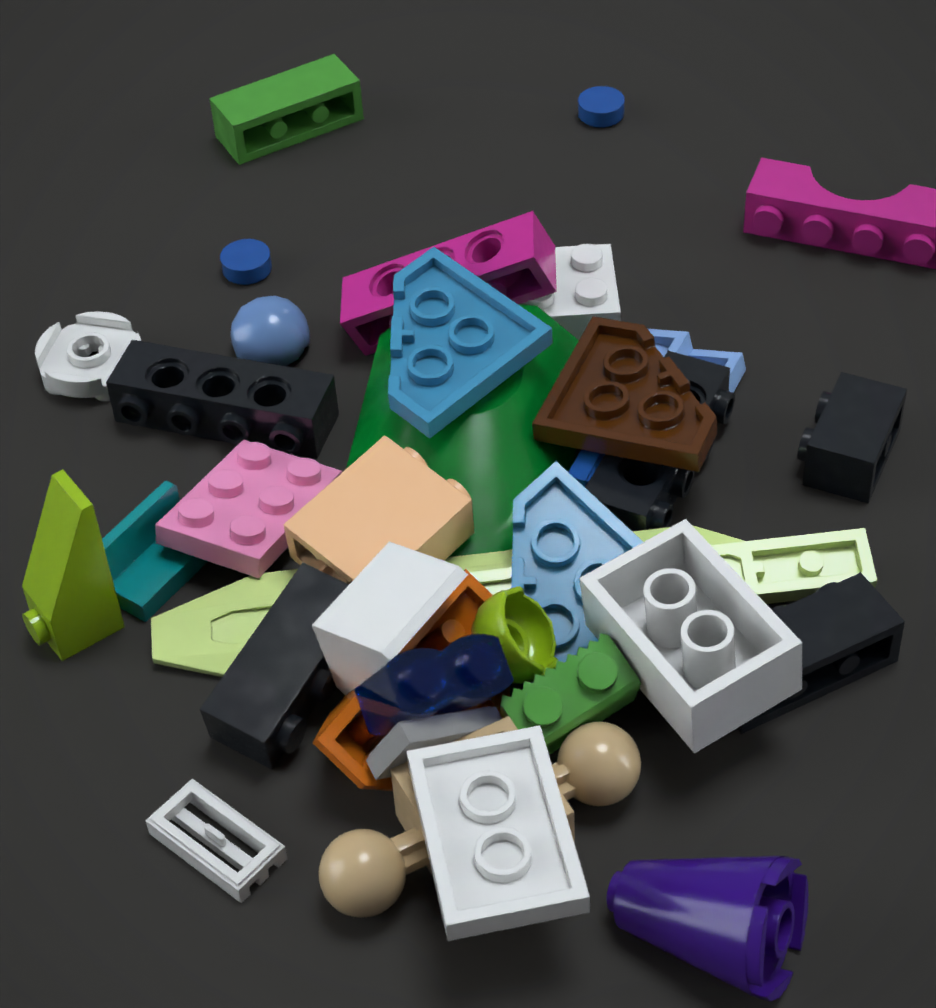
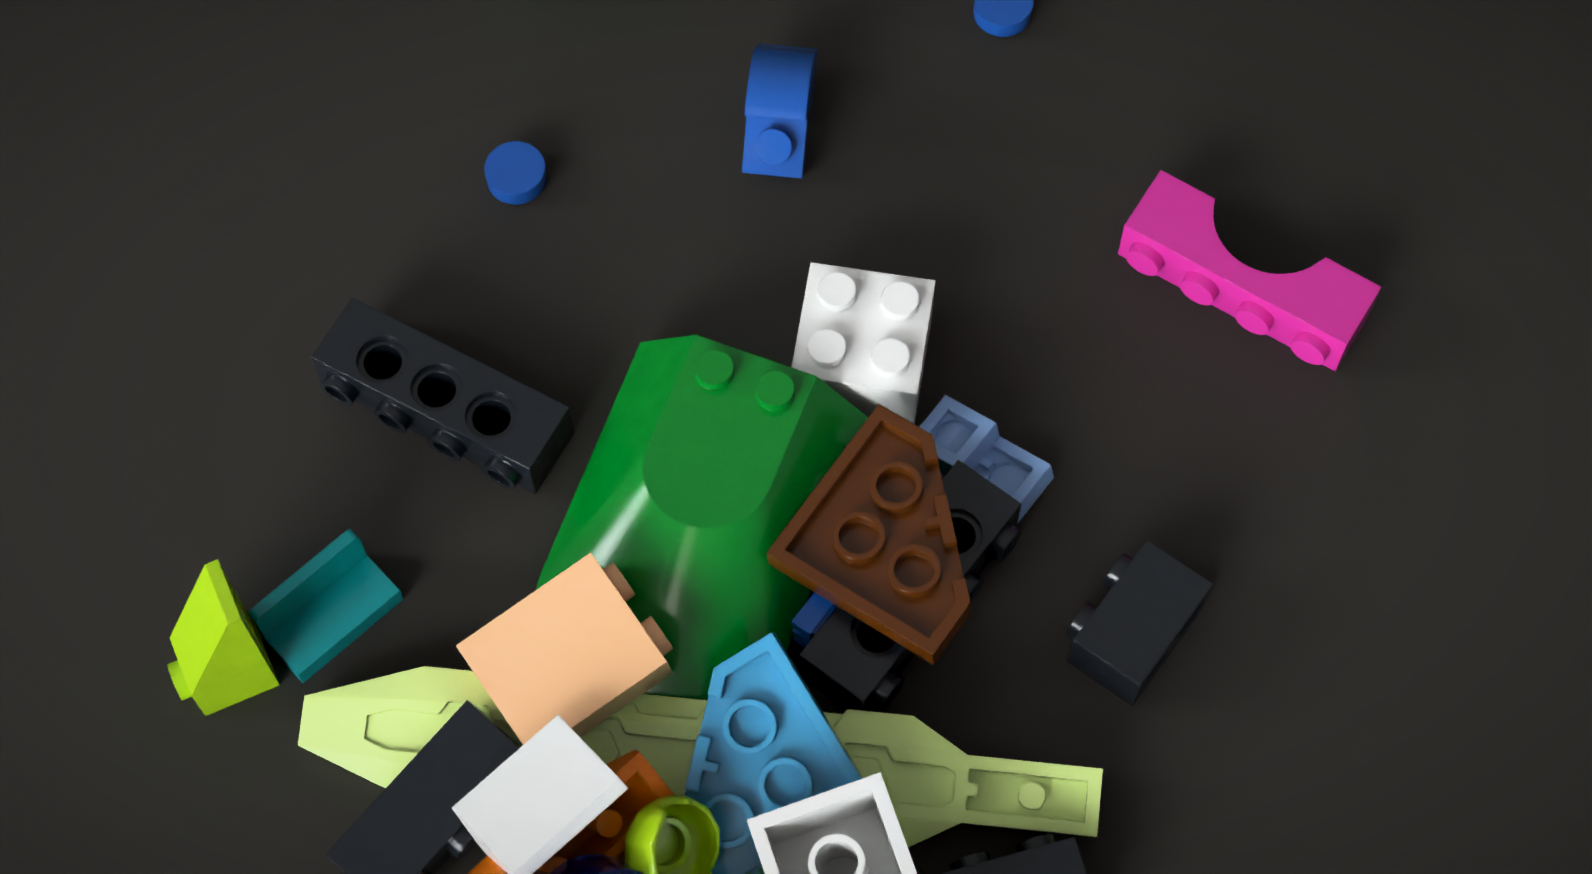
camera: 10 degrees right, 20 degrees up
(65, 353) = (297, 258): white plate -> none
(241, 508) = (440, 567): bright pink plate -> none
(270, 331) = (518, 301): medium blue hair -> none
(449, 183) = (778, 109): none -> blue brick
(453, 341) = (698, 428): dark azure plate -> none
(508, 255) = (732, 302): dark pink brick -> none

